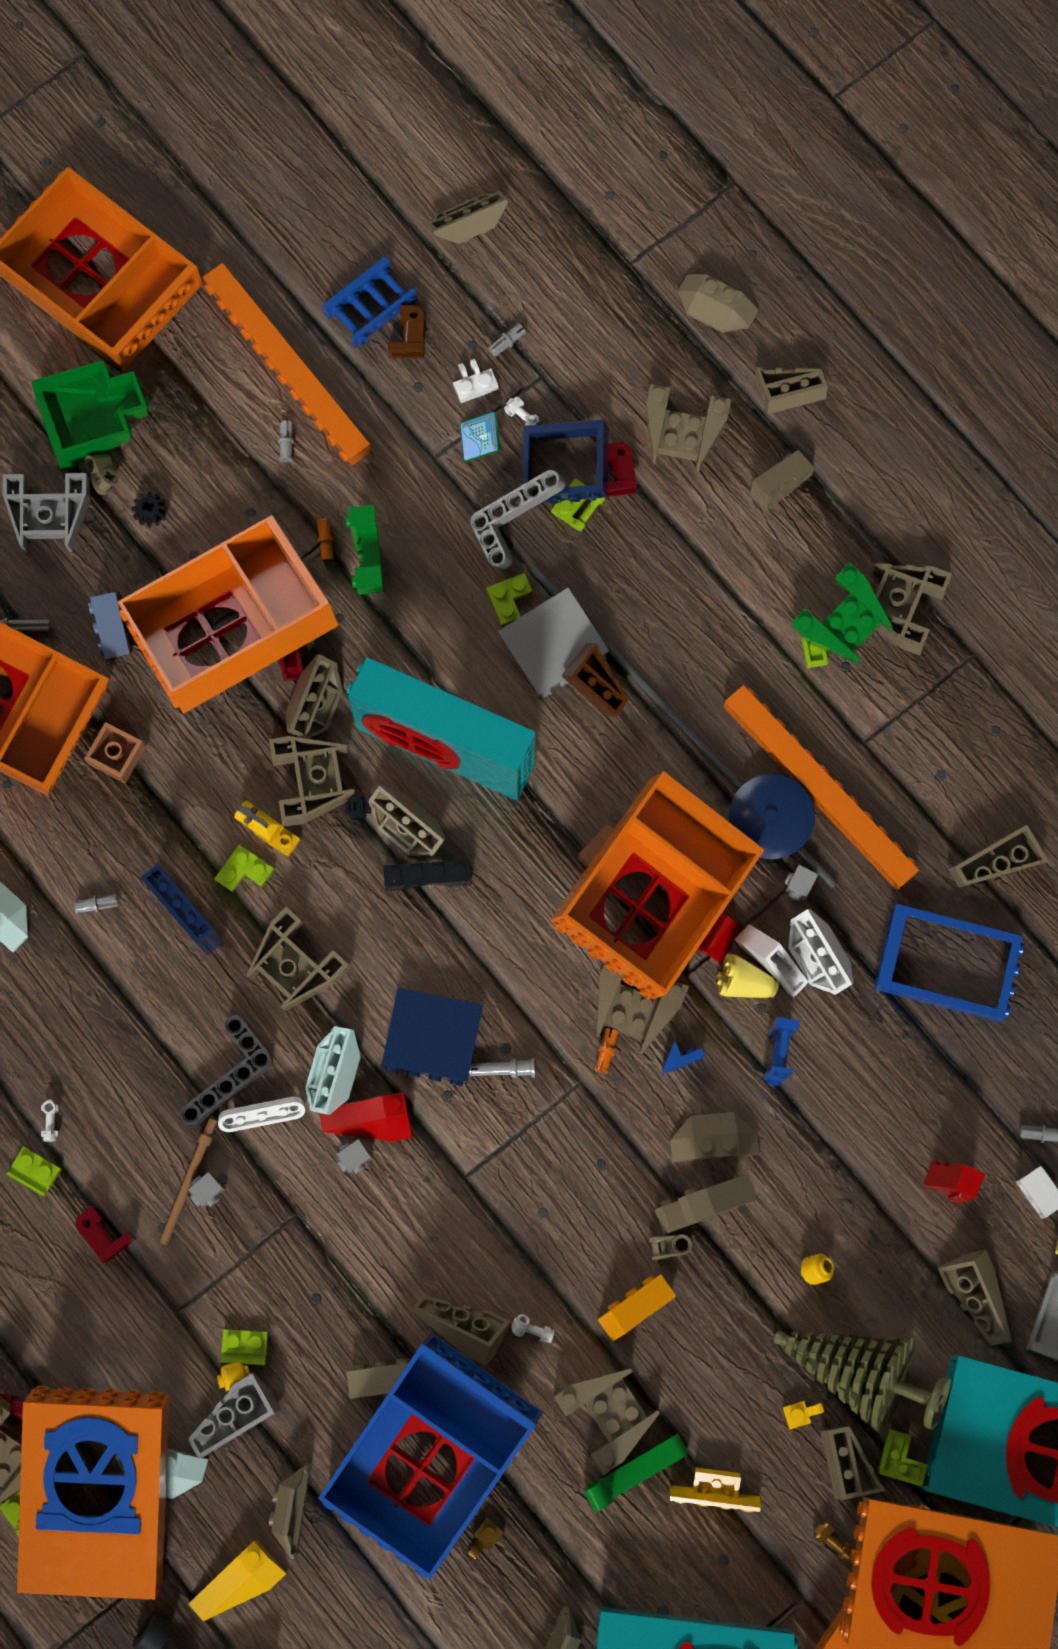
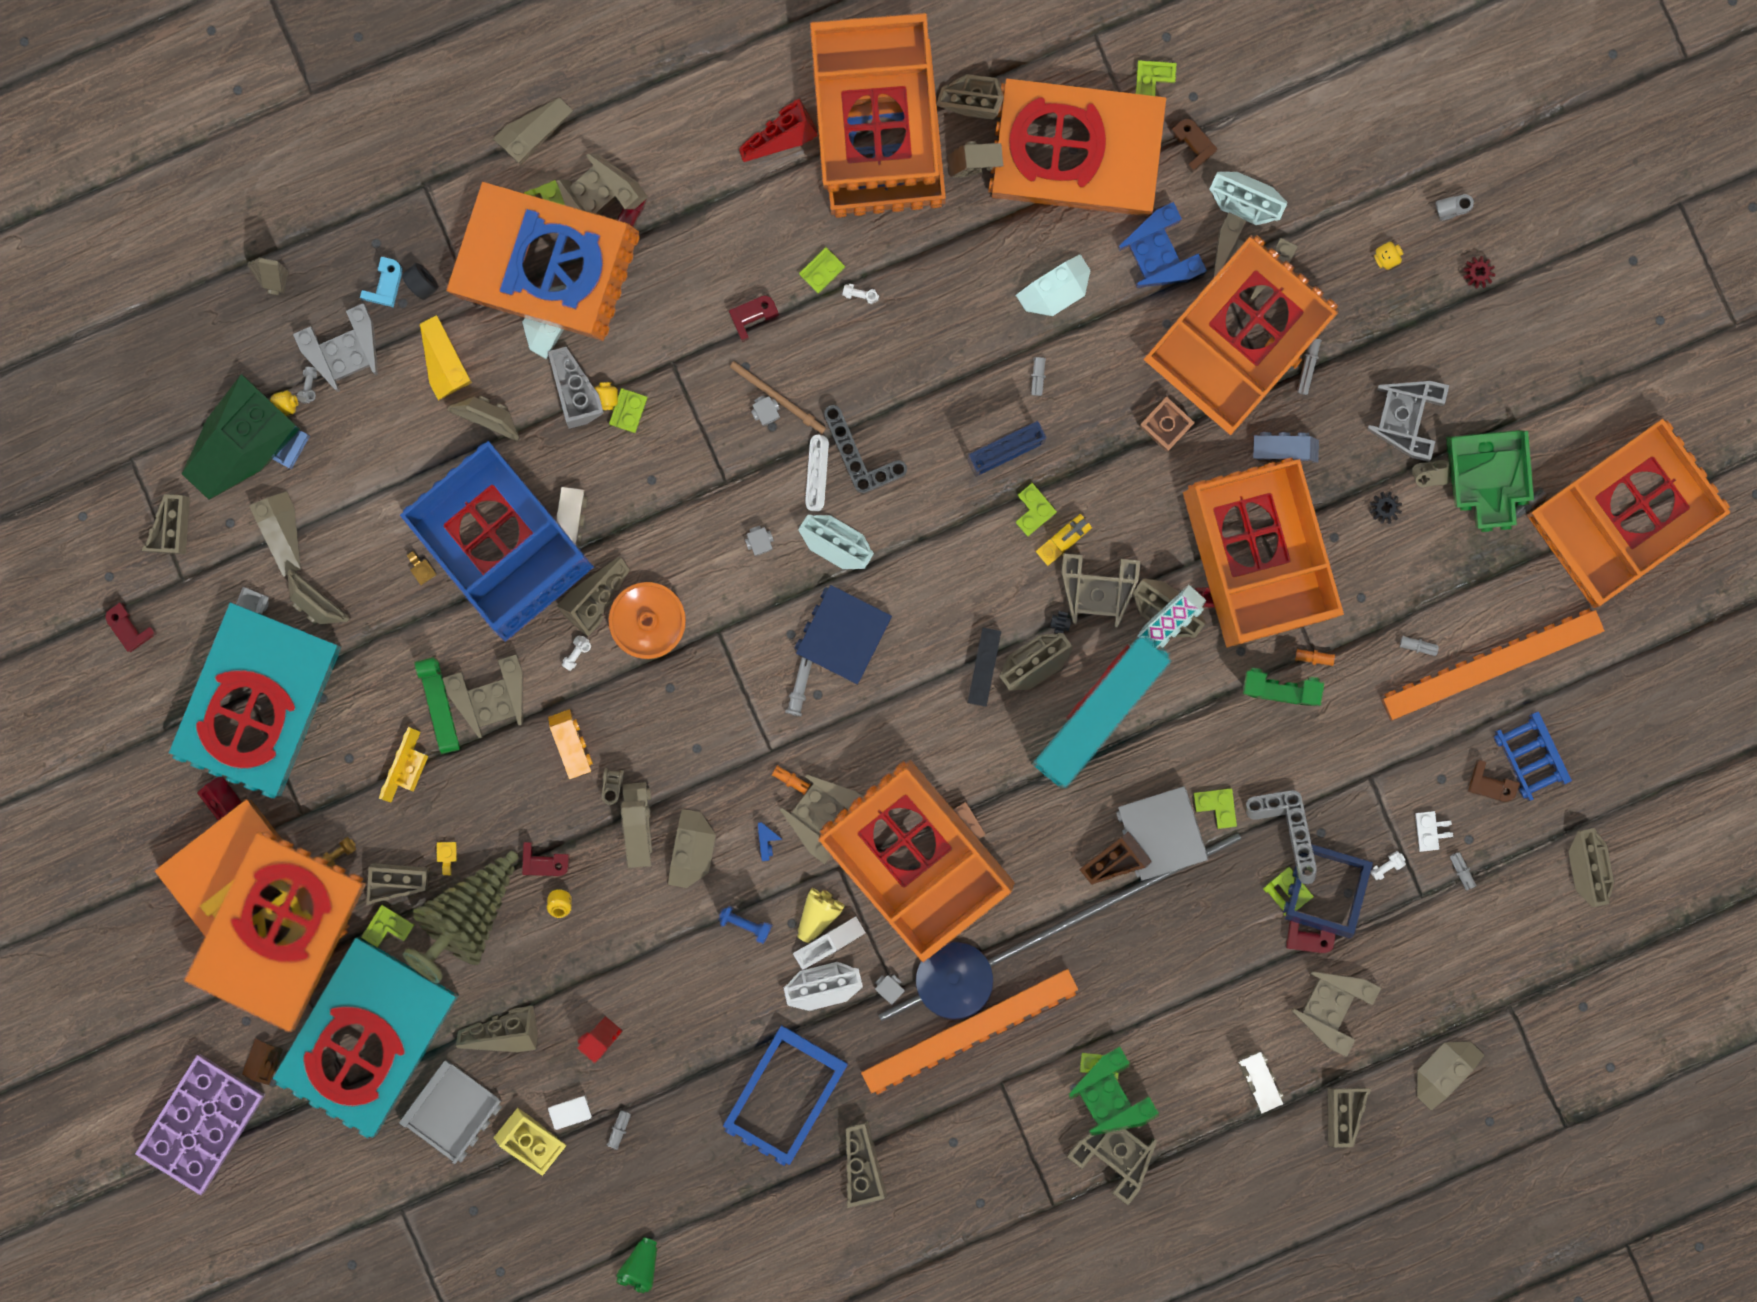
camera: 105 degrees right, 10 degrees up
(290, 967) = (936, 528): dark tan wedge -> none
(319, 687) = (1173, 616): none -> light aqua brick
(374, 1118) = (786, 569): red wedge -> none
(475, 1258) = (647, 620): none -> orange dish
(480, 436) = (1374, 821): piece -> none
(720, 938) = (860, 905): red panel -> none
(779, 1299) = (543, 864): none -> dark red piece

